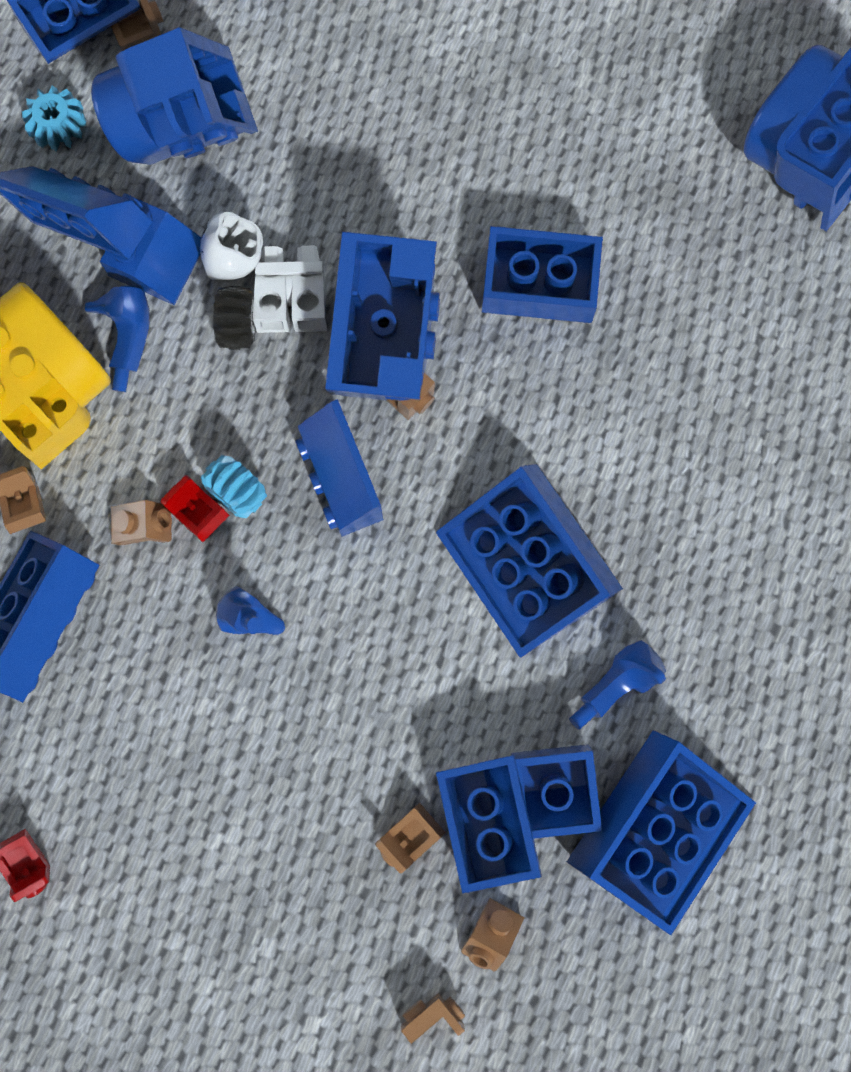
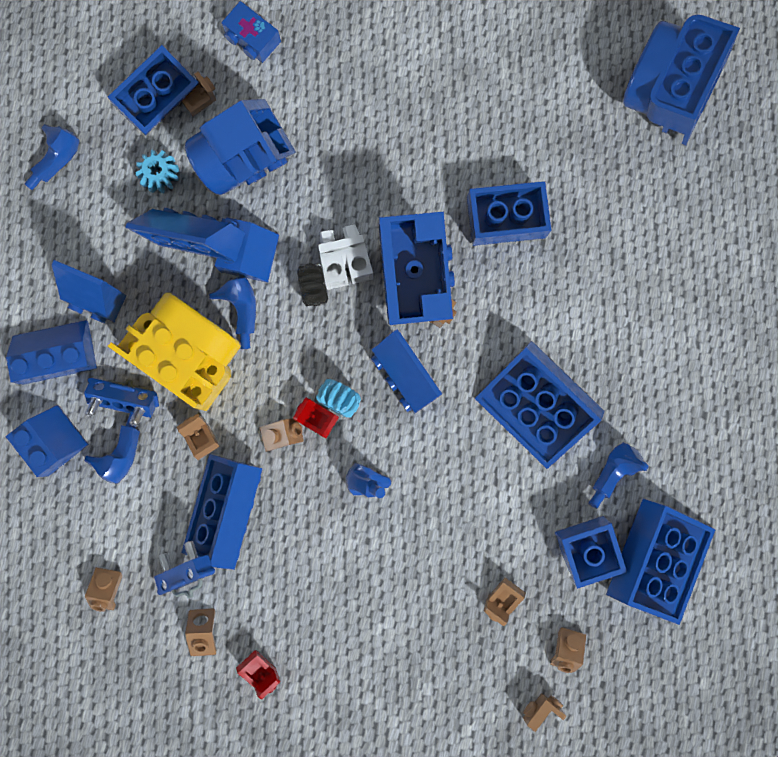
camera: 20 degrees left, 5 degrees up
(230, 246) = (299, 238): white piece -> none
(488, 824) = (554, 583): blue slope -> none

